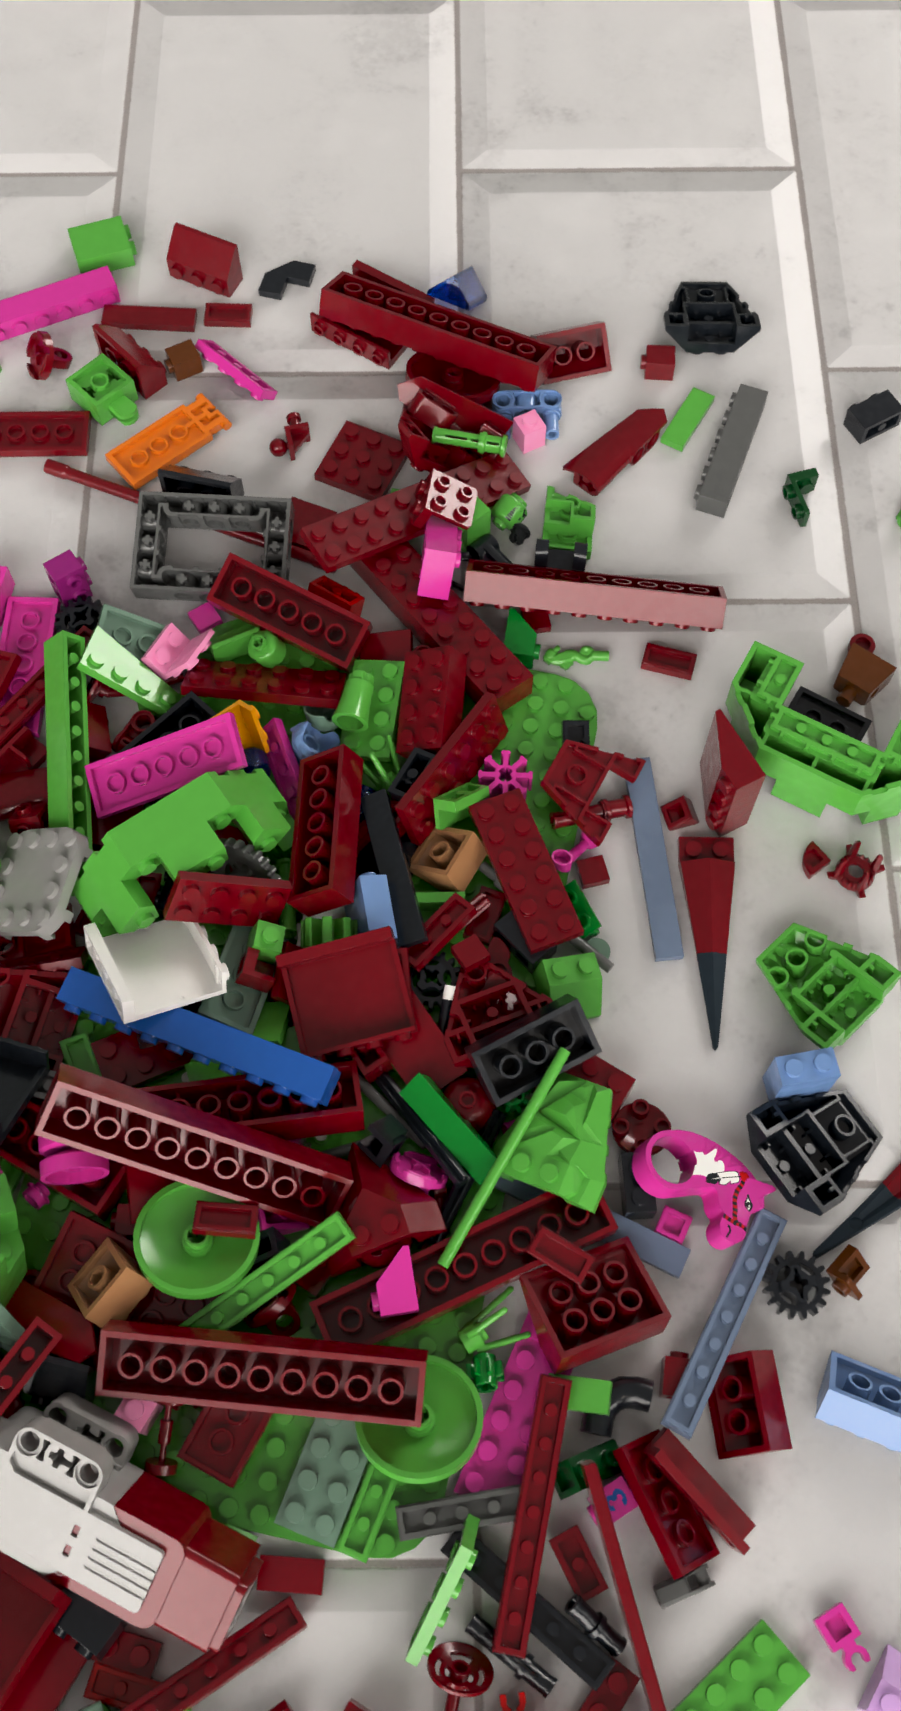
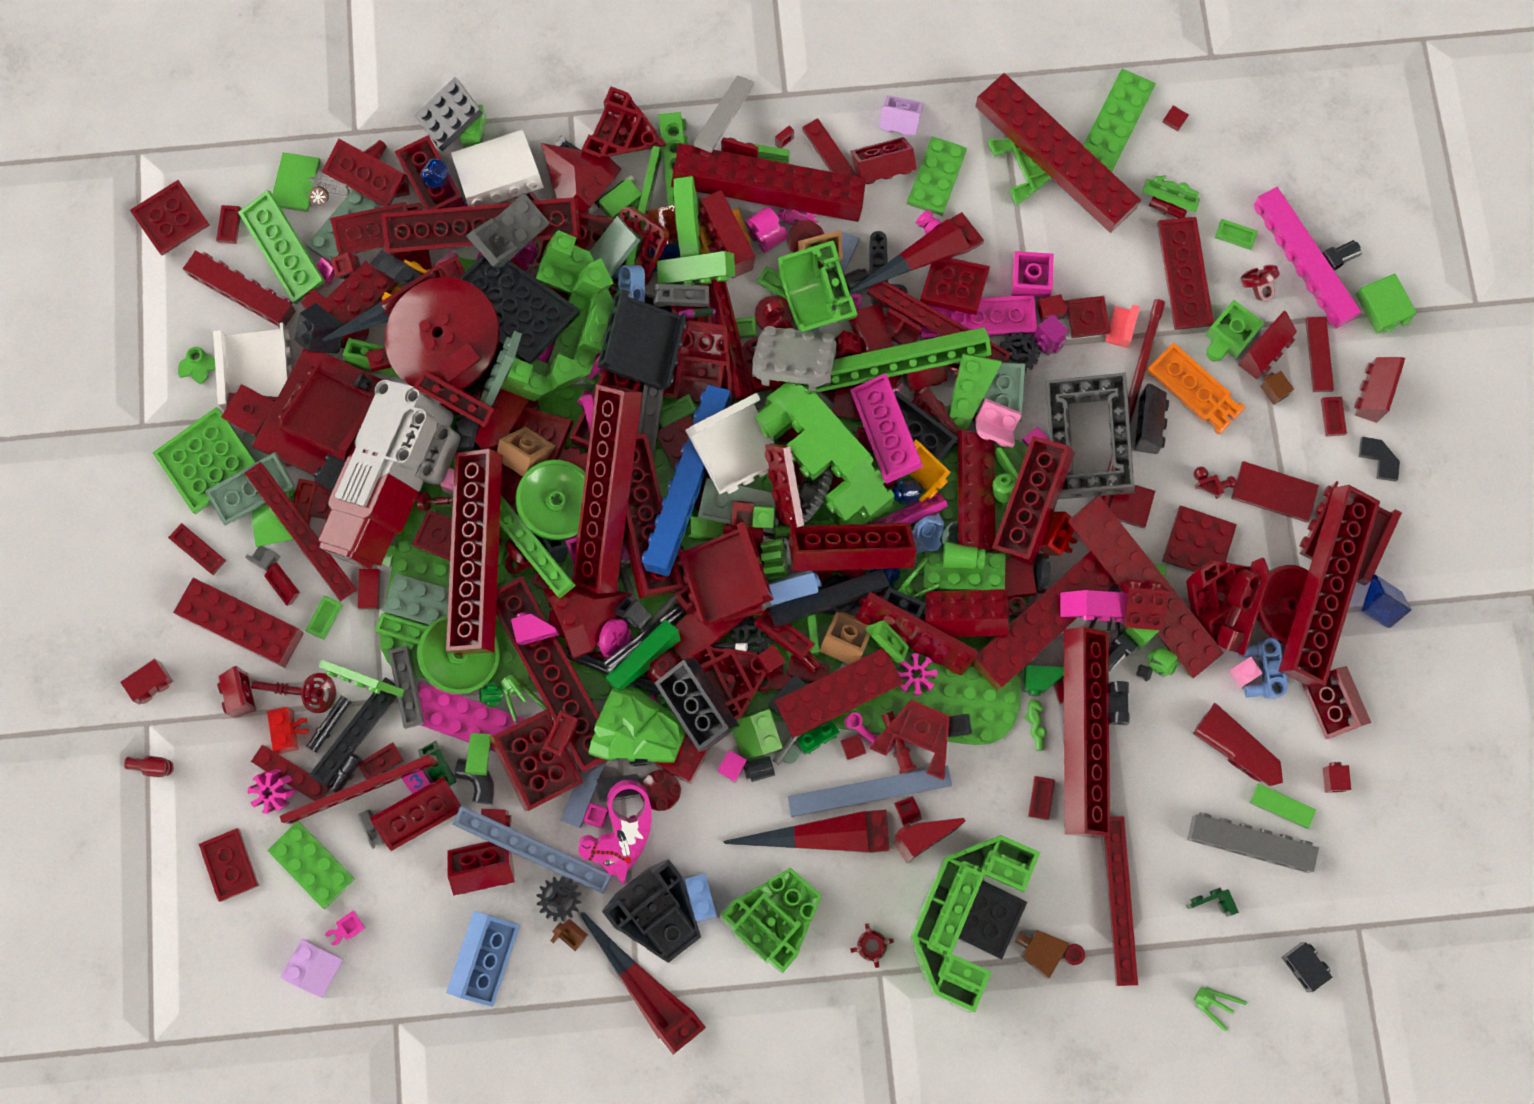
camera: 85 degrees right, 10 degrees up
(29, 275) = (1338, 256): none -> black piece
(31, 578) = (1052, 305): none -> dark red brick
(48, 539) = (1088, 317): none -> dark red plate
(71, 506) = (1122, 325): none -> coral panel
(147, 713) = (936, 407): none -> dark red axle
(225, 1219) = (567, 515): dark red tile -> none
(231, 366) = (1274, 430): dark pink plate -> none
(311, 380) = (1275, 491): none -> dark red tile
(330, 1658) = (324, 617): none -> bright green tile
(385, 618) = (1041, 572): none -> black tile
(483, 445) = (1220, 631): bright green pin -> none
(503, 1158) = (621, 690): bright green piece -> none
(531, 1517) = (406, 728): dark red tile -> none
(568, 521) = (1158, 710): bright green slope -> none
(613, 1024) = (732, 766): none -> dark pink panel
(618, 990) = (759, 769): none -> black brick
(700, 1489) = (424, 834): dark red fence -> none
(709, 318) = (1394, 819): black wedge -> none
(805, 589) = (1120, 904): none -> dark red plate
(814, 860) = (879, 914): dark red tile -> none

